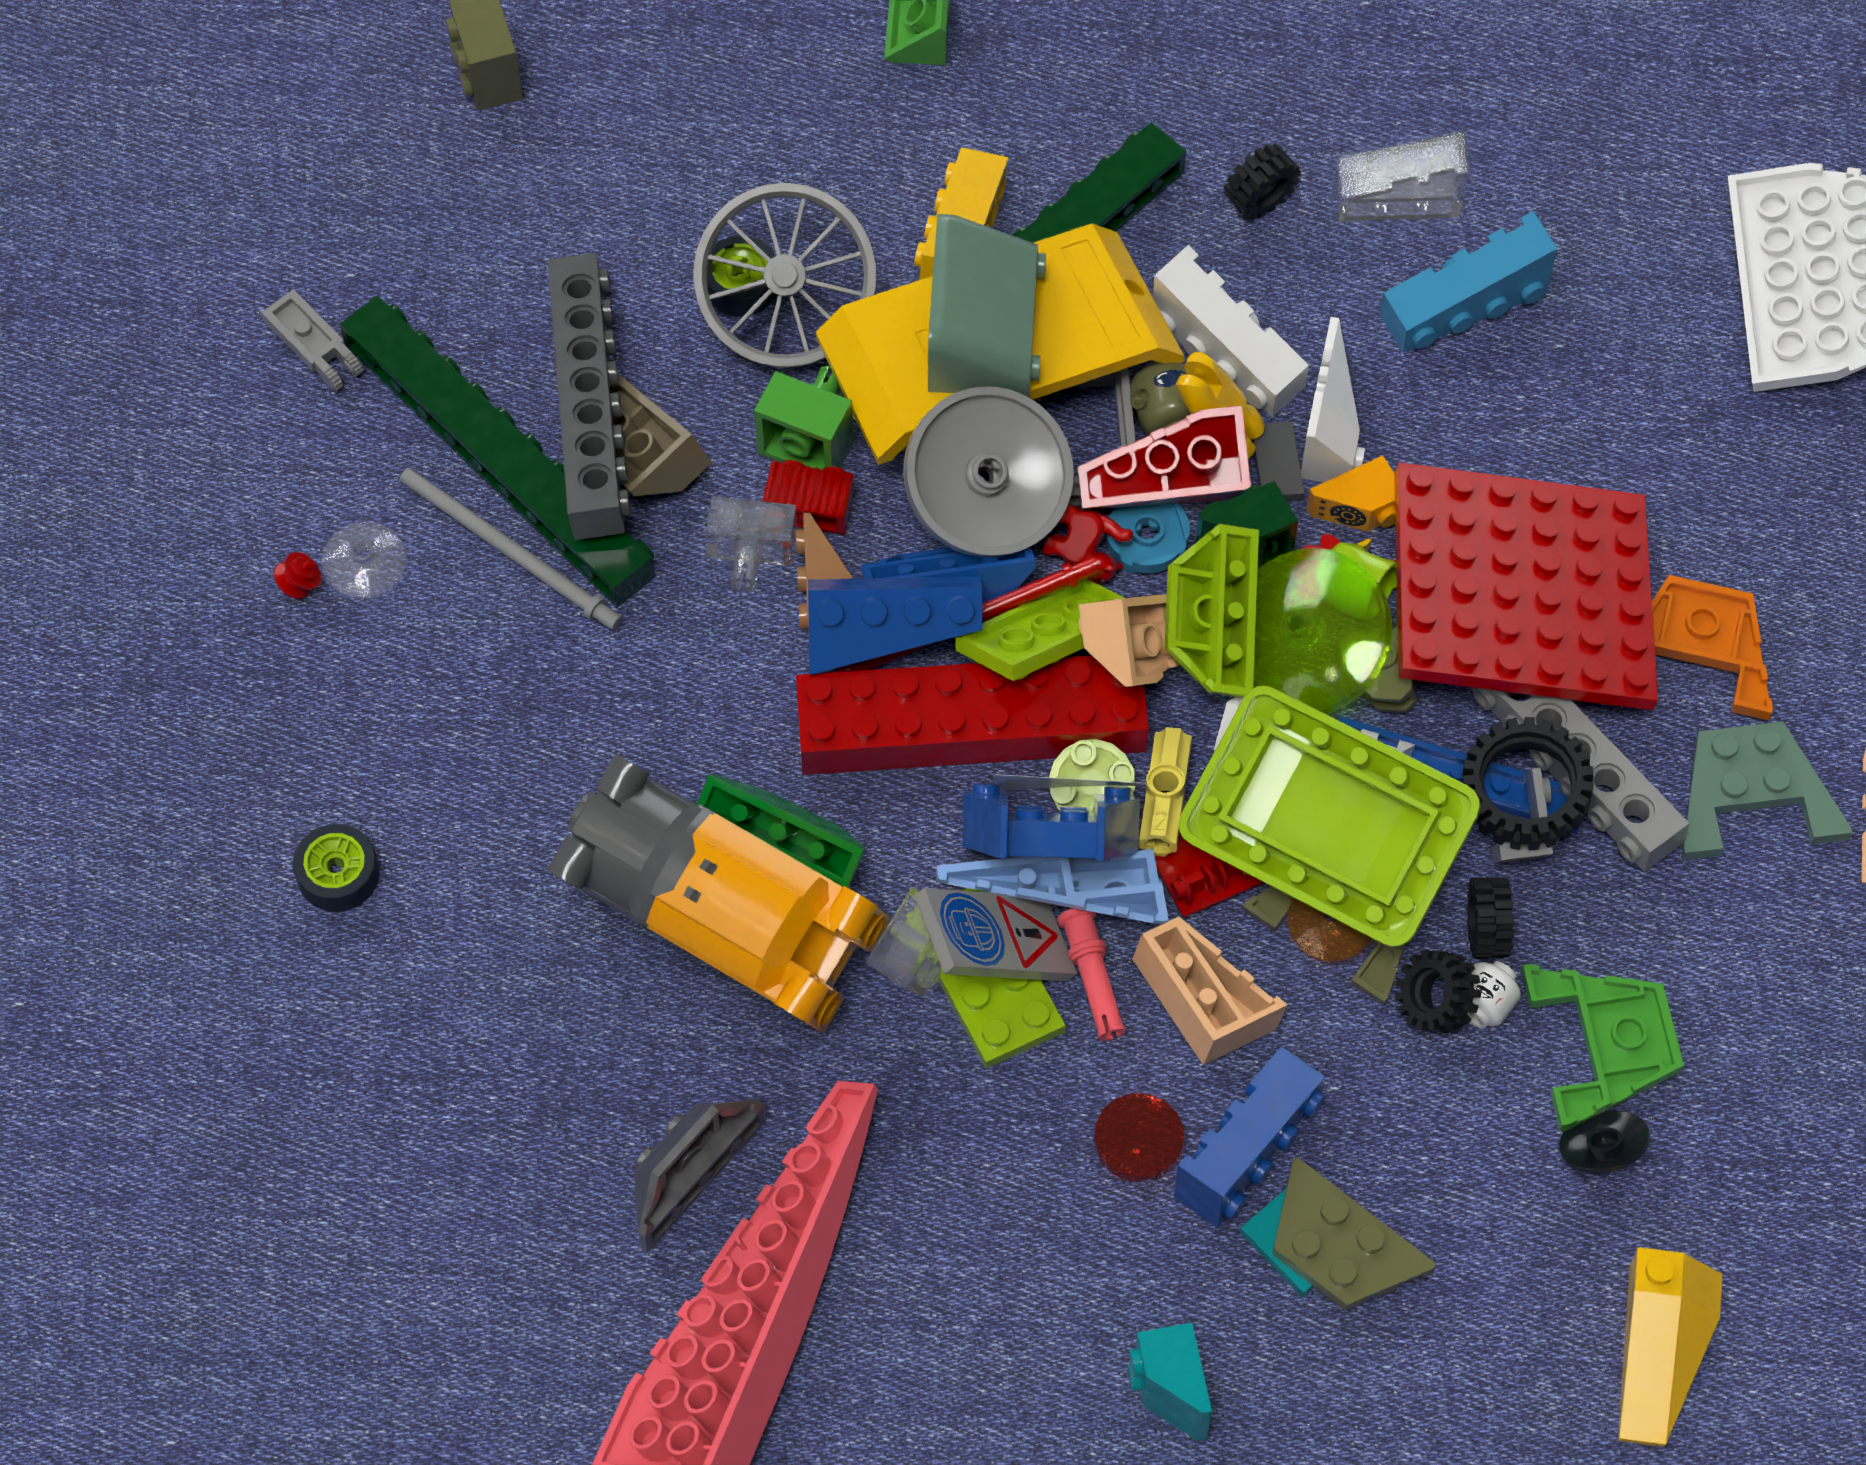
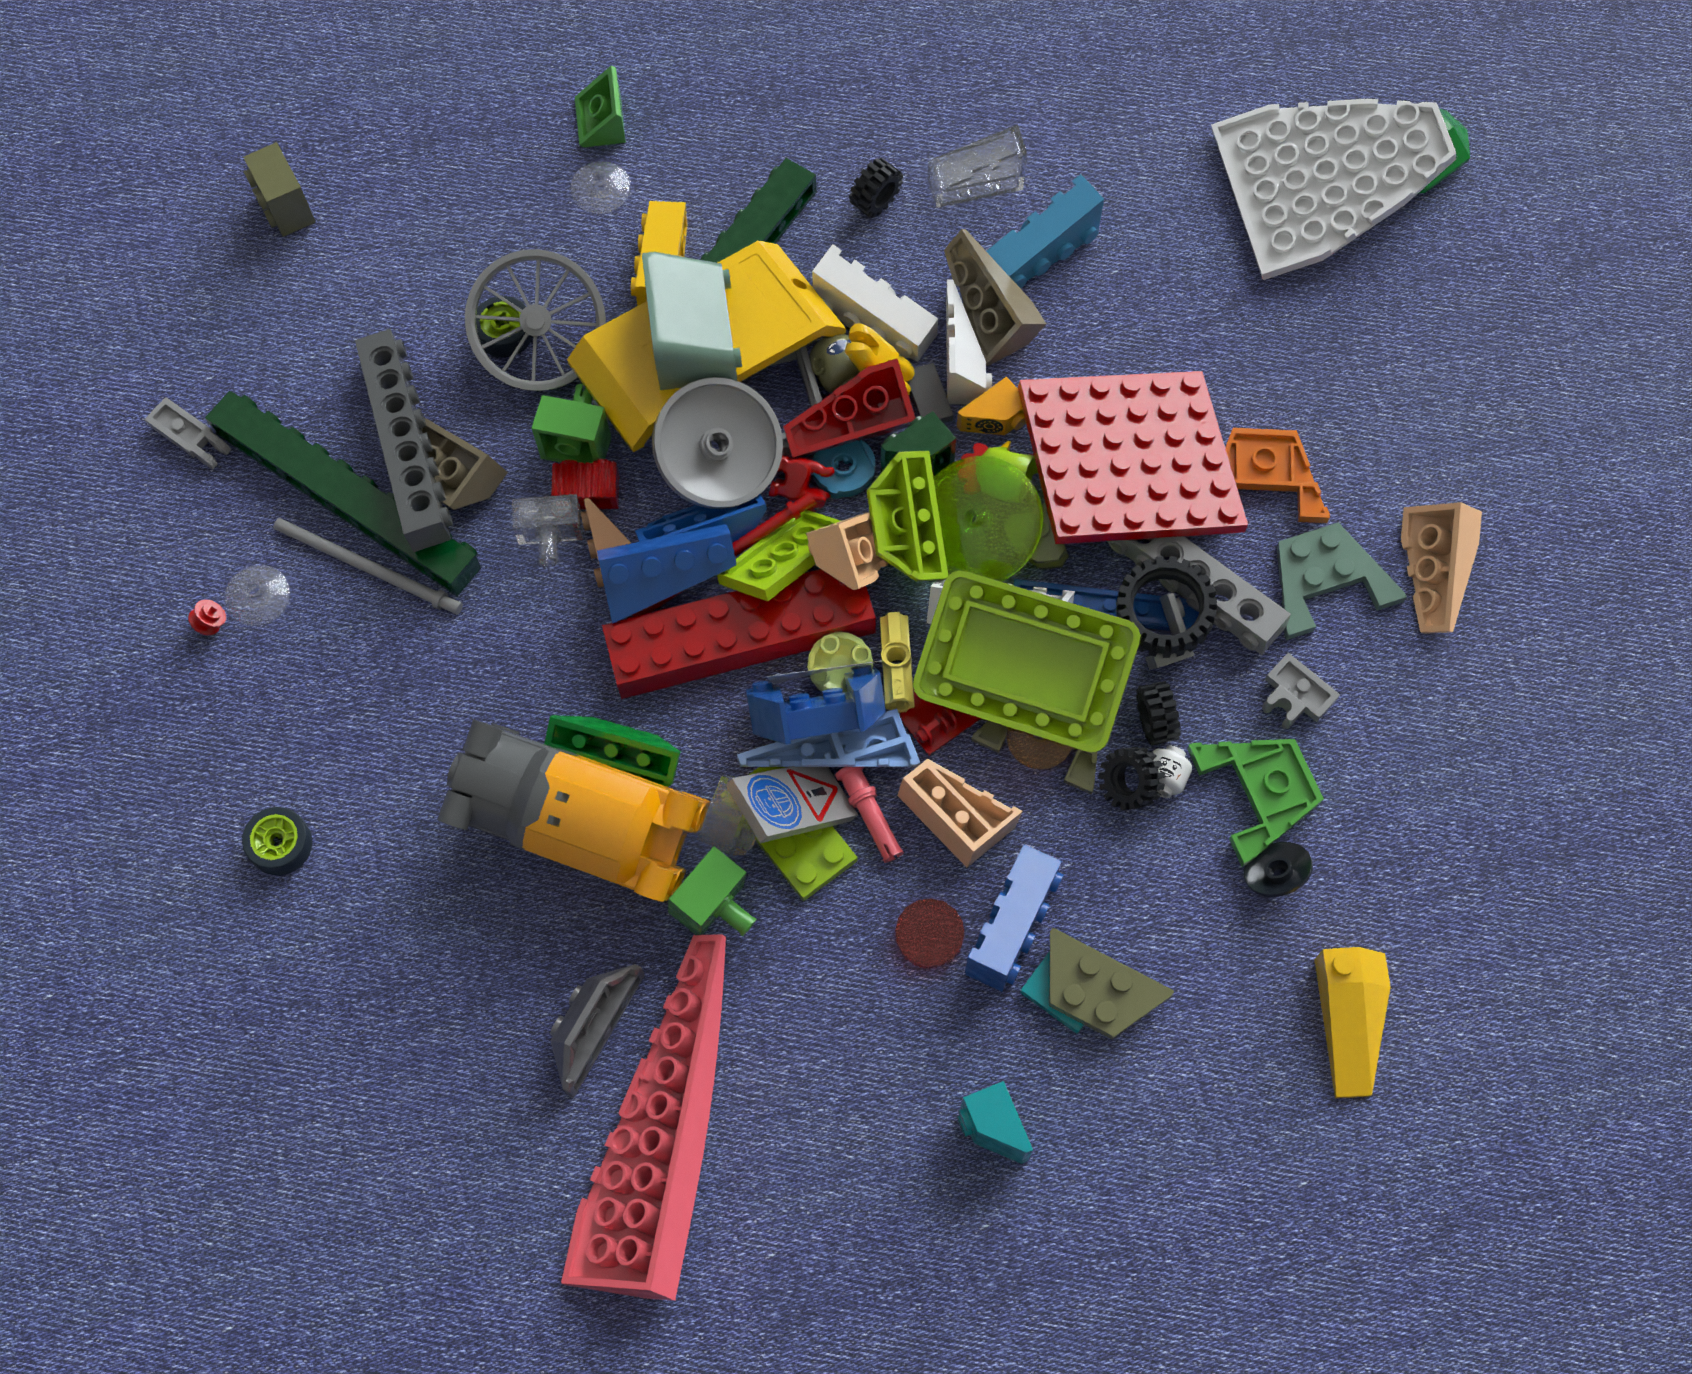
camera: 10 degrees left, 5 degrees up
(868, 1032) = (710, 895): none -> bright green brick
(901, 130) = (601, 196): none -> clear dish
(1389, 364) = (995, 305): none -> dark tan wedge
(1680, 926) = (1298, 691): none -> light grey plate

